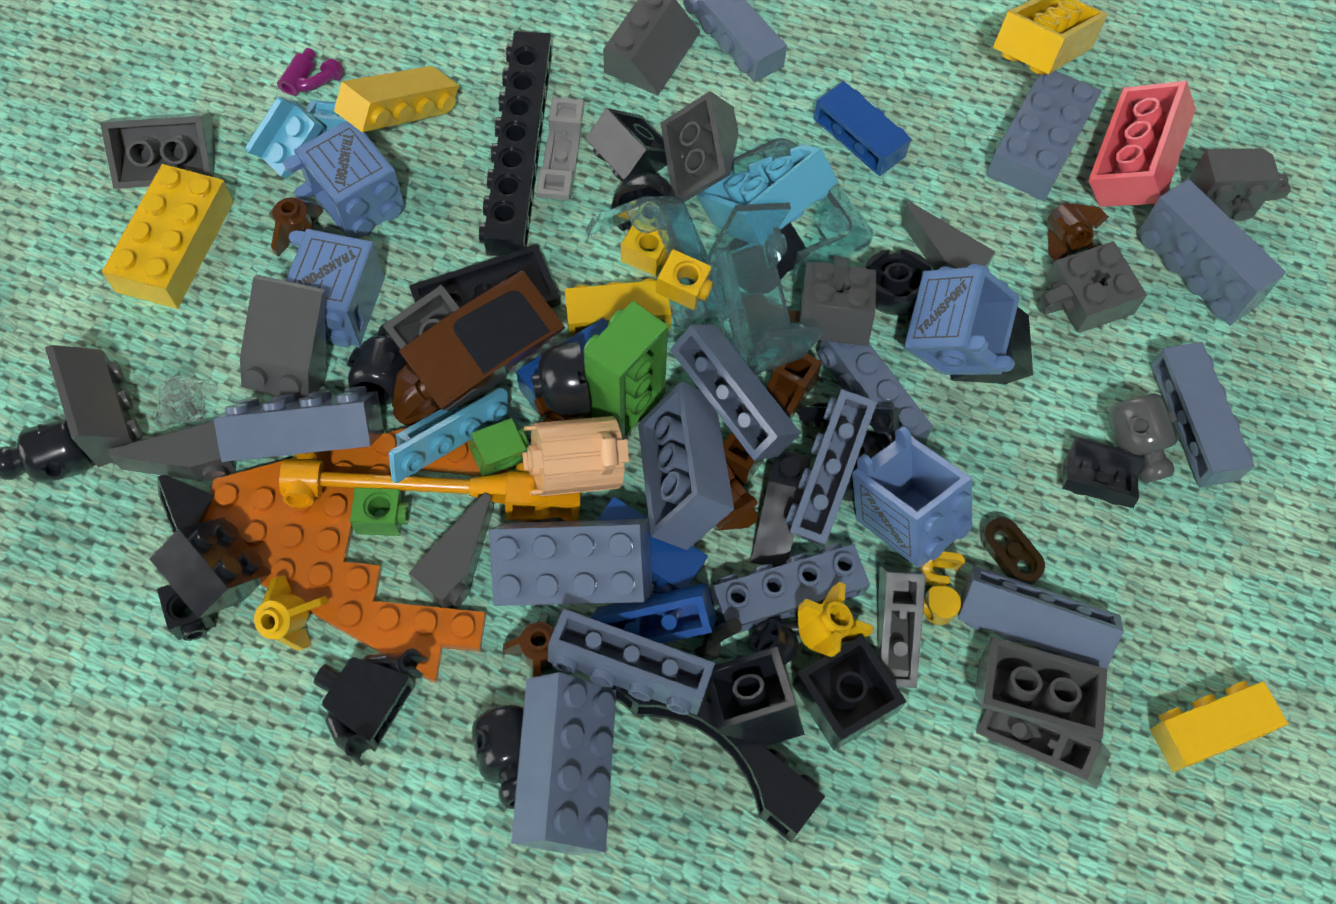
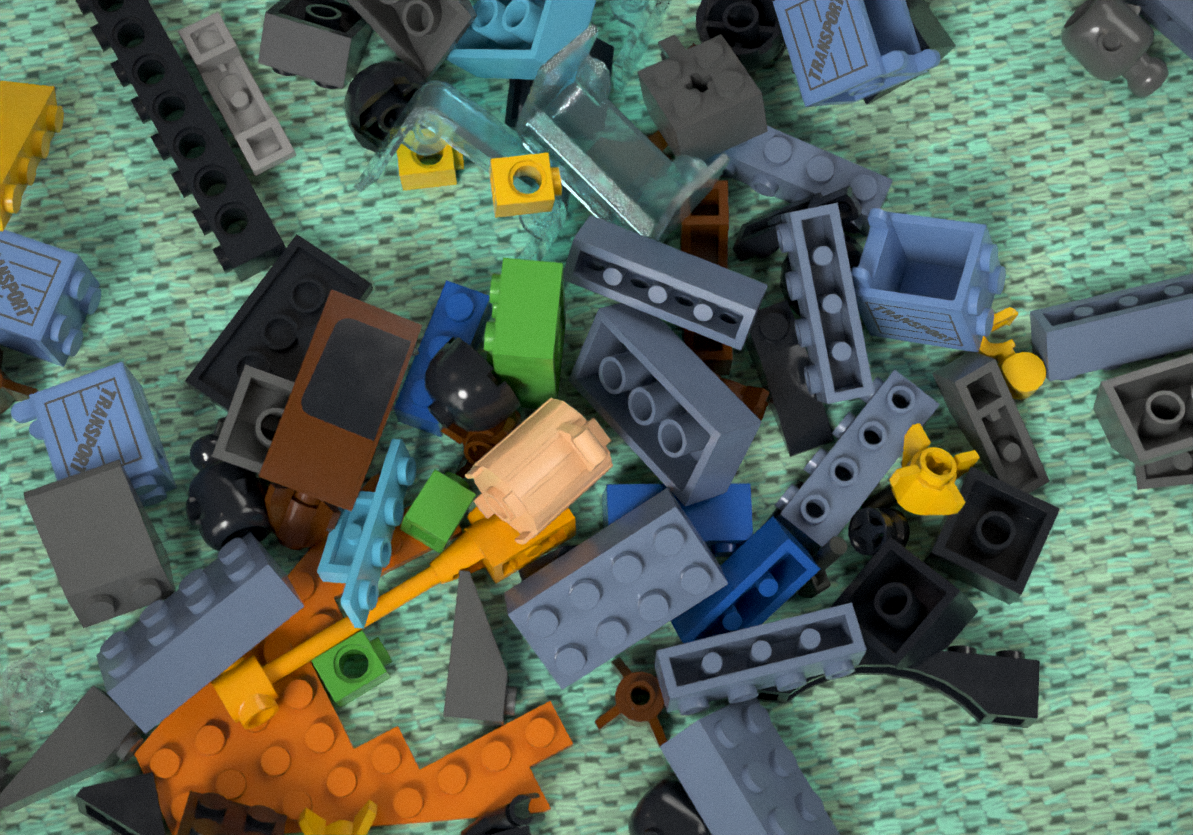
camera: 30 degrees left, 10 degrees up
(591, 303) = (445, 250): yellow brick -> none
(1015, 550) = (1056, 263): dark brown plate -> none
(1102, 472) = (1094, 116): black bracket -> none

